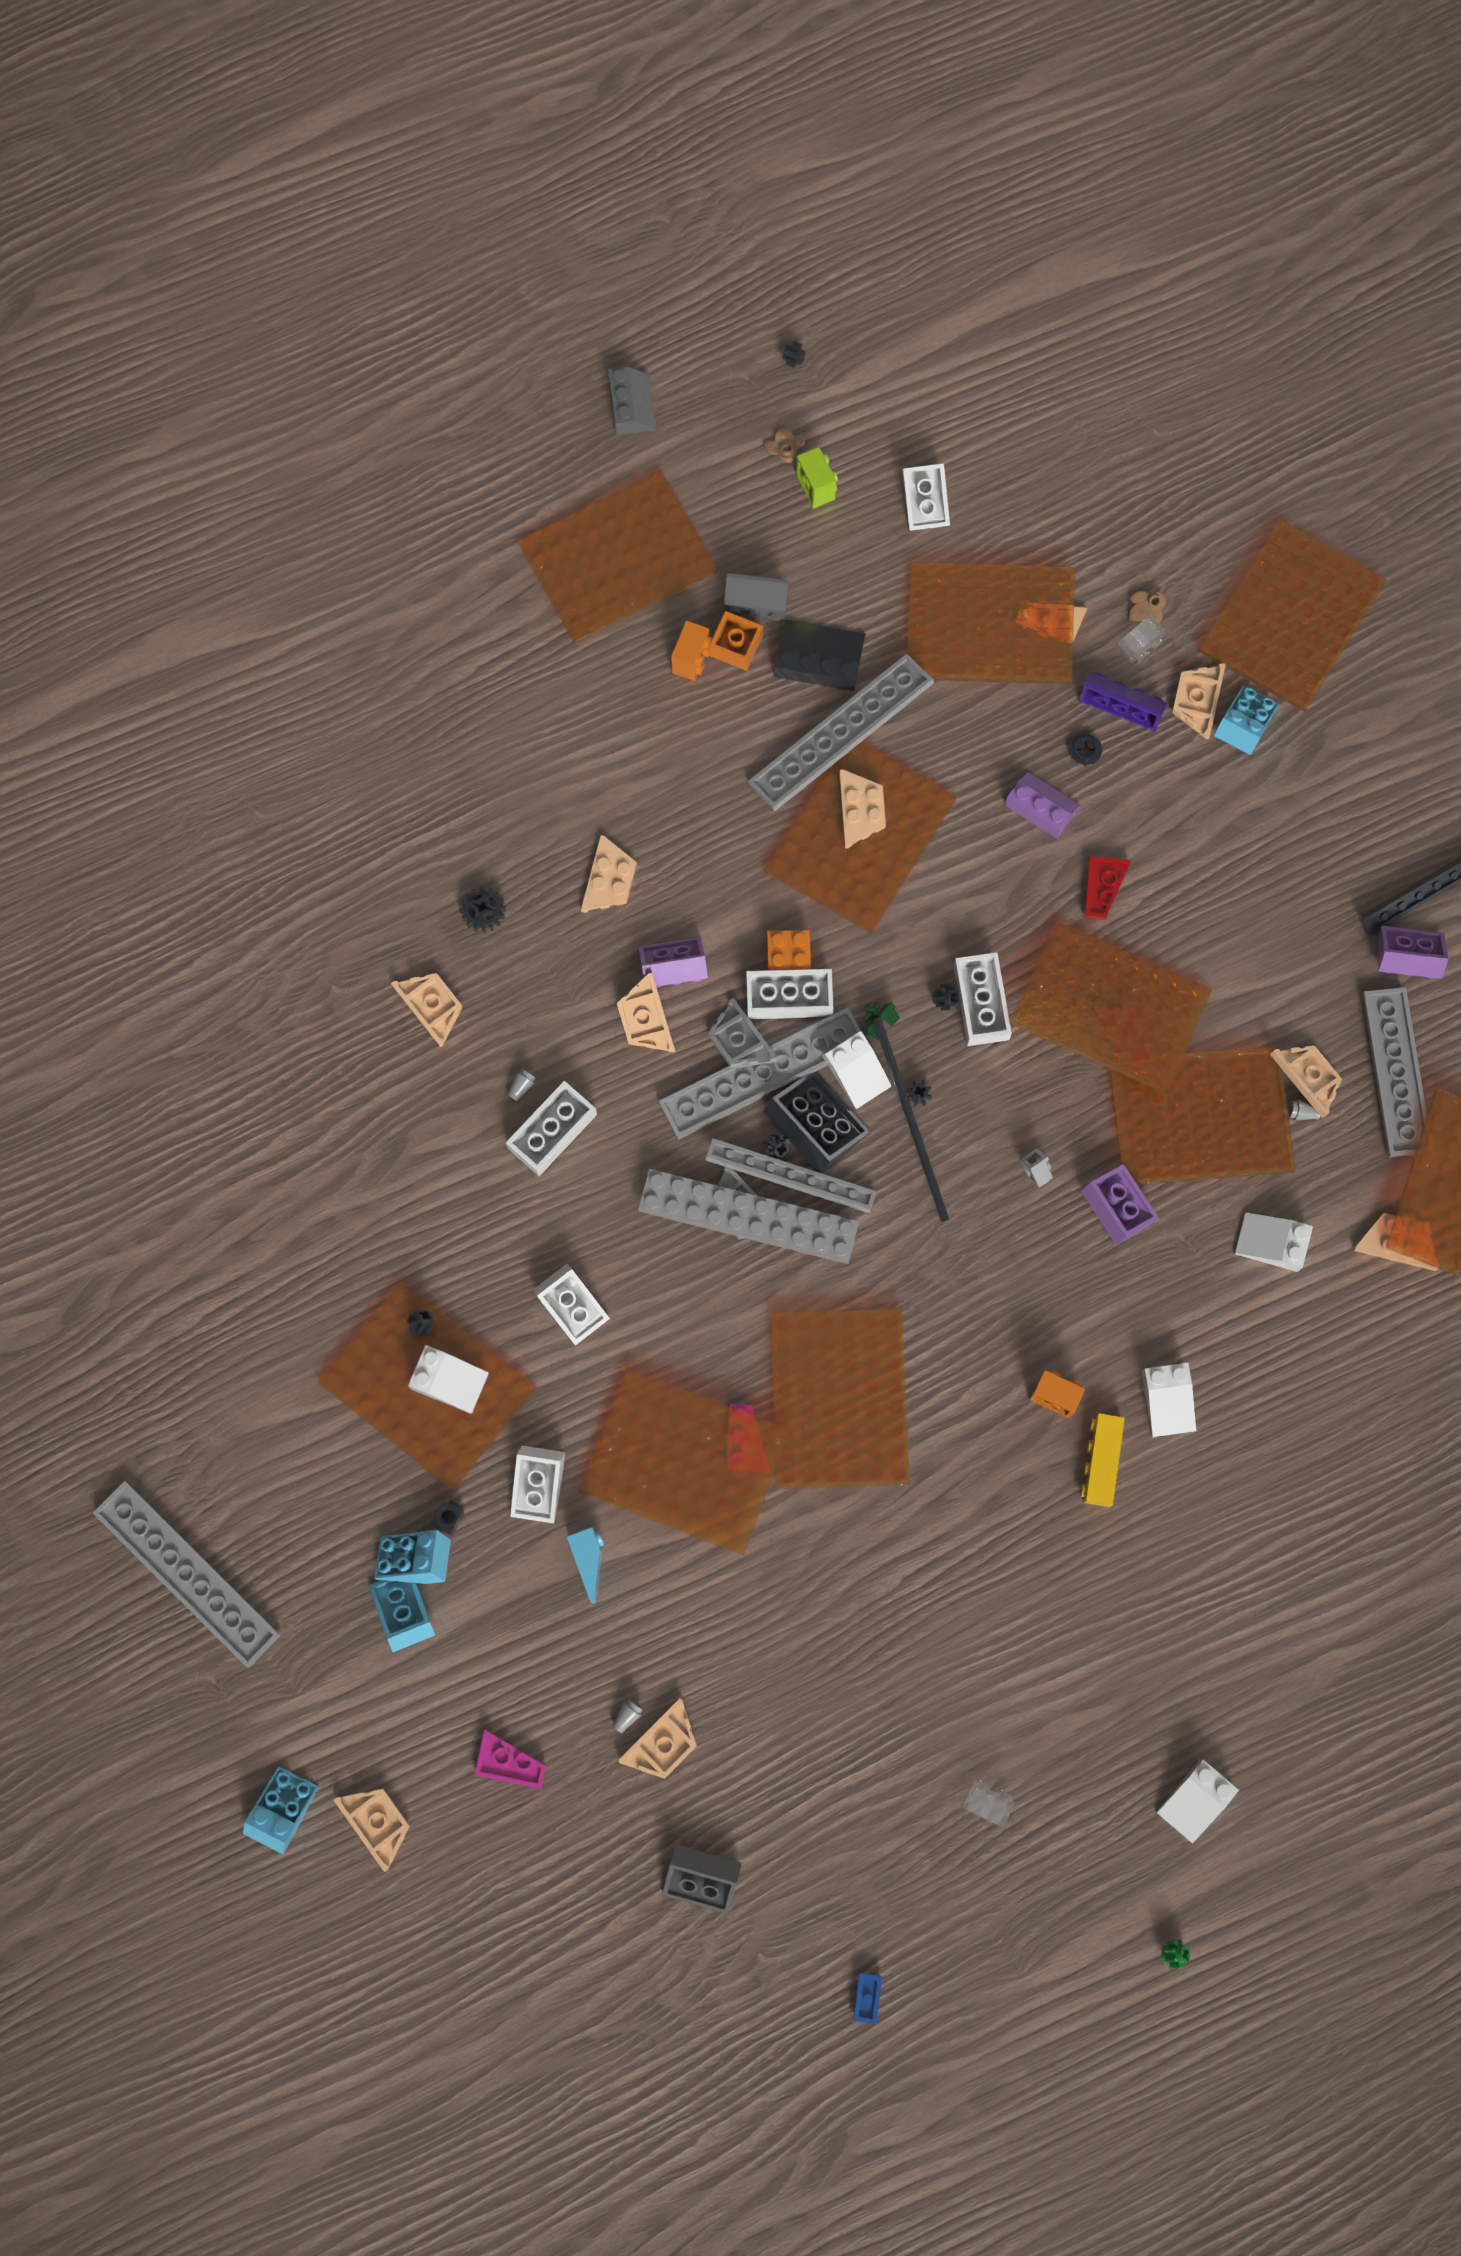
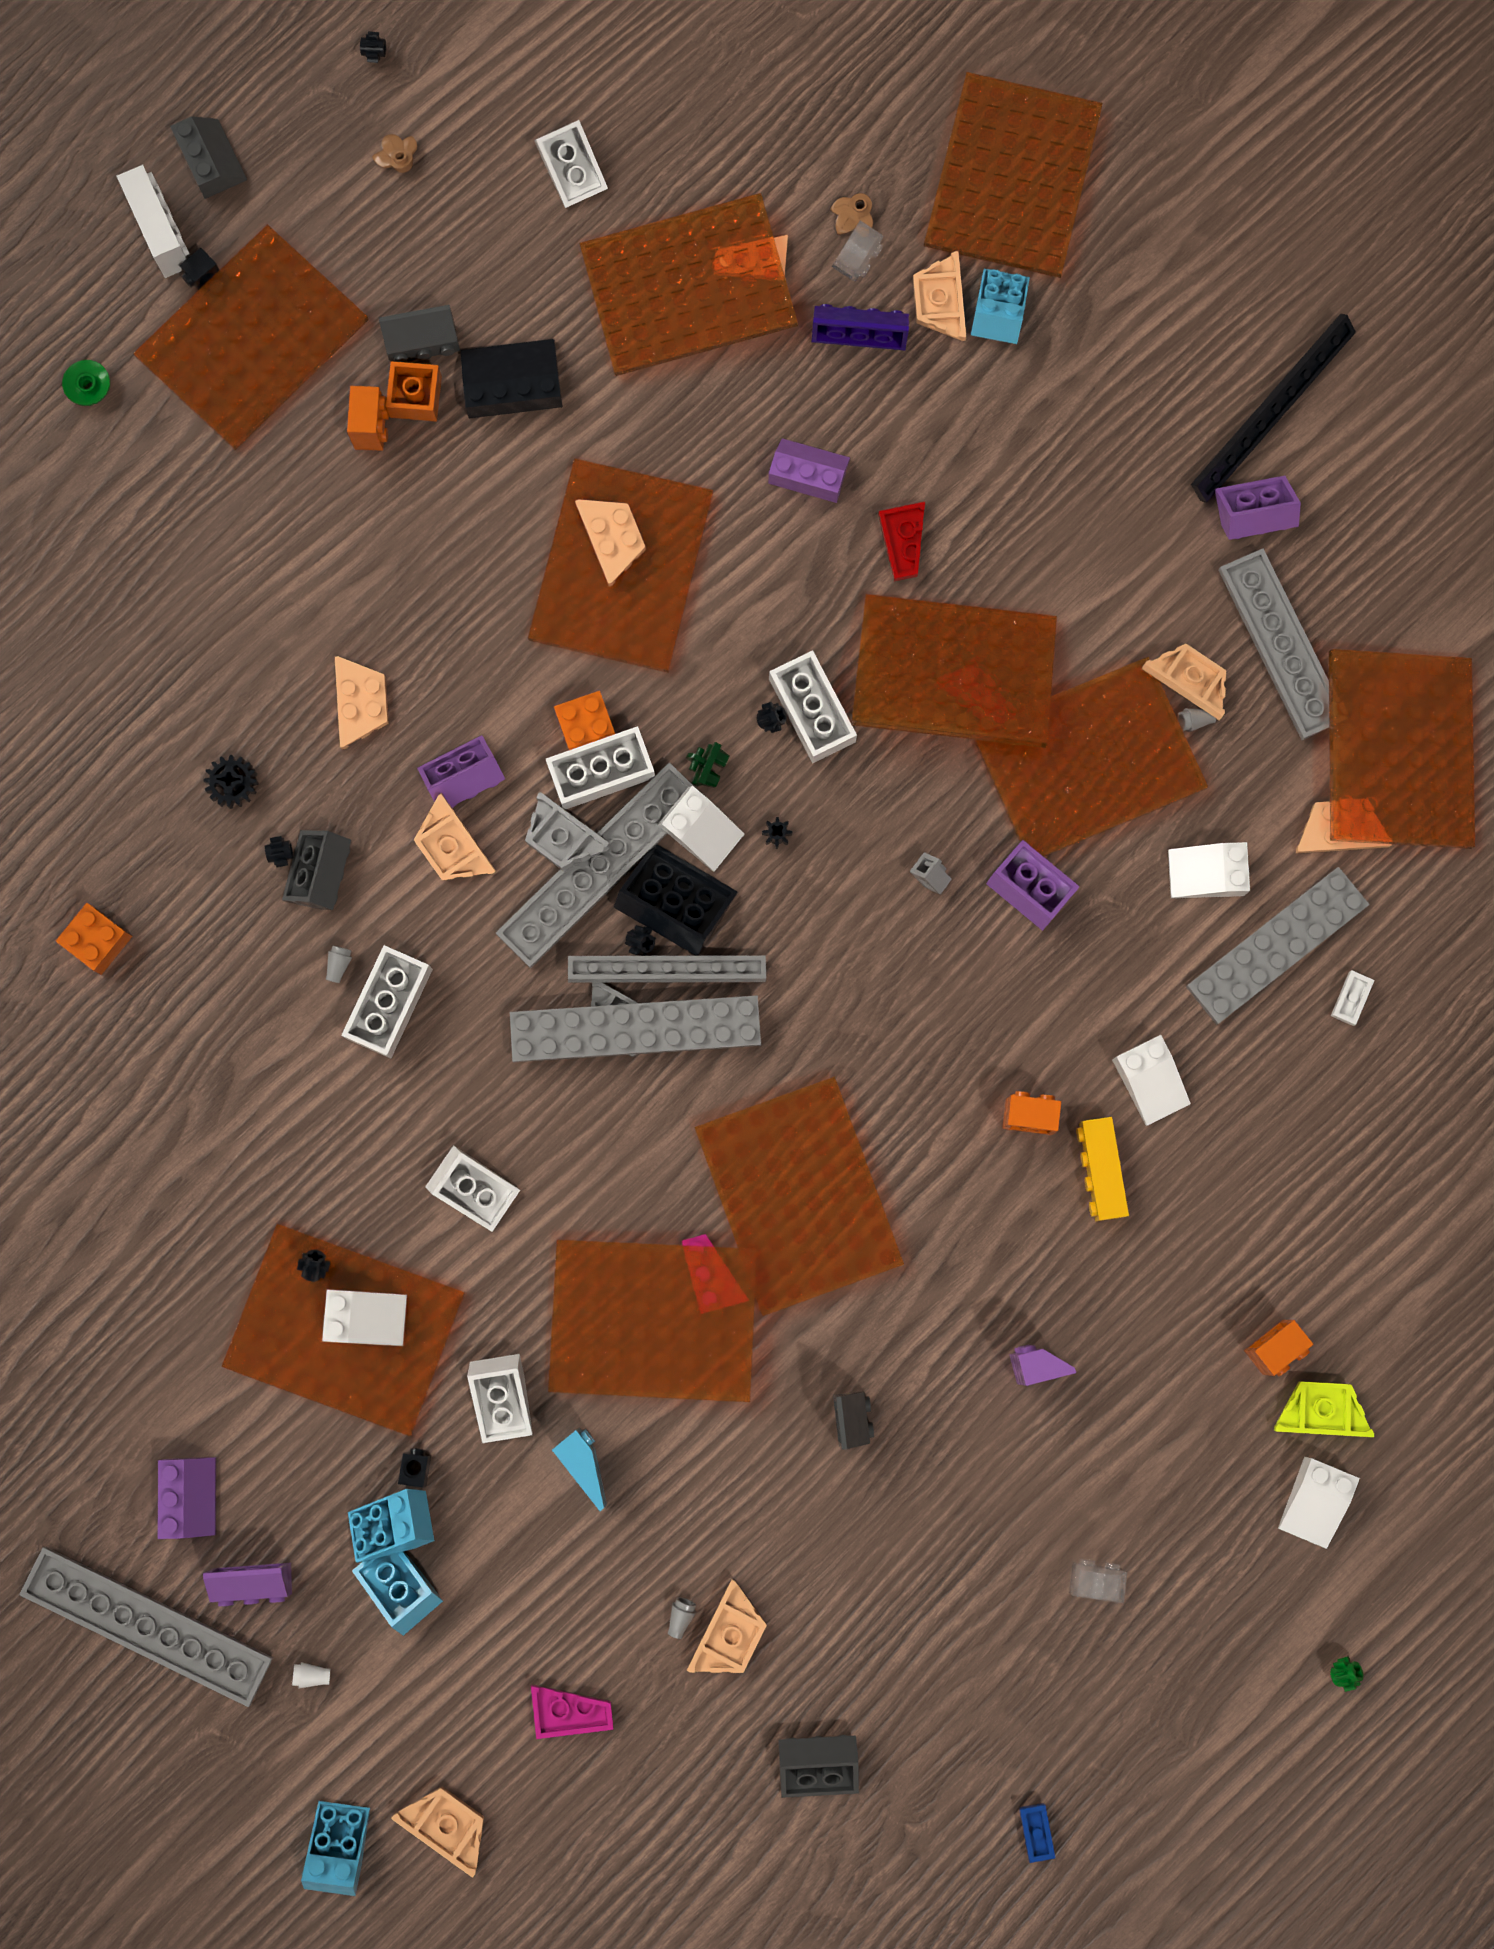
camera: 20 degrees left, 5 degrees up
(254, 1479) = (186, 1497): none -> medium lavender slope
(281, 1566) = (249, 1583): none -> medium lavender slope
(305, 1659) = (310, 1675): none -> white cone
(330, 1001) = (93, 938): none -> orange brick
(431, 1004) = (208, 905): light nougat wing -> none
(469, 545) = (80, 375): none -> green dish
(503, 978) = (279, 851): none -> black gear
(529, 1002) = (317, 869): none -> dark grey slope
(571, 440) = (154, 219): none -> white brick
(593, 490) = (198, 269): none -> black brick
(816, 477) = (443, 178): lime brick -> none
(824, 1597) = (852, 1420): none -> dark grey slope
(840, 732) = (562, 458): light grey plate -> none
(911, 1120) = (777, 864): black piece -> none
(995, 1603) = (1037, 1365): none -> medium lavender slope
(1092, 744) = (841, 385): black gear -> none
(1202, 1658) = (1279, 1348): none -> orange brick
(1227, 1725) = (1324, 1410): none -> neon yellow wing
(1312, 1322) = (1277, 945): none -> light grey plate
(1363, 1386) = (1352, 998): none -> white plate

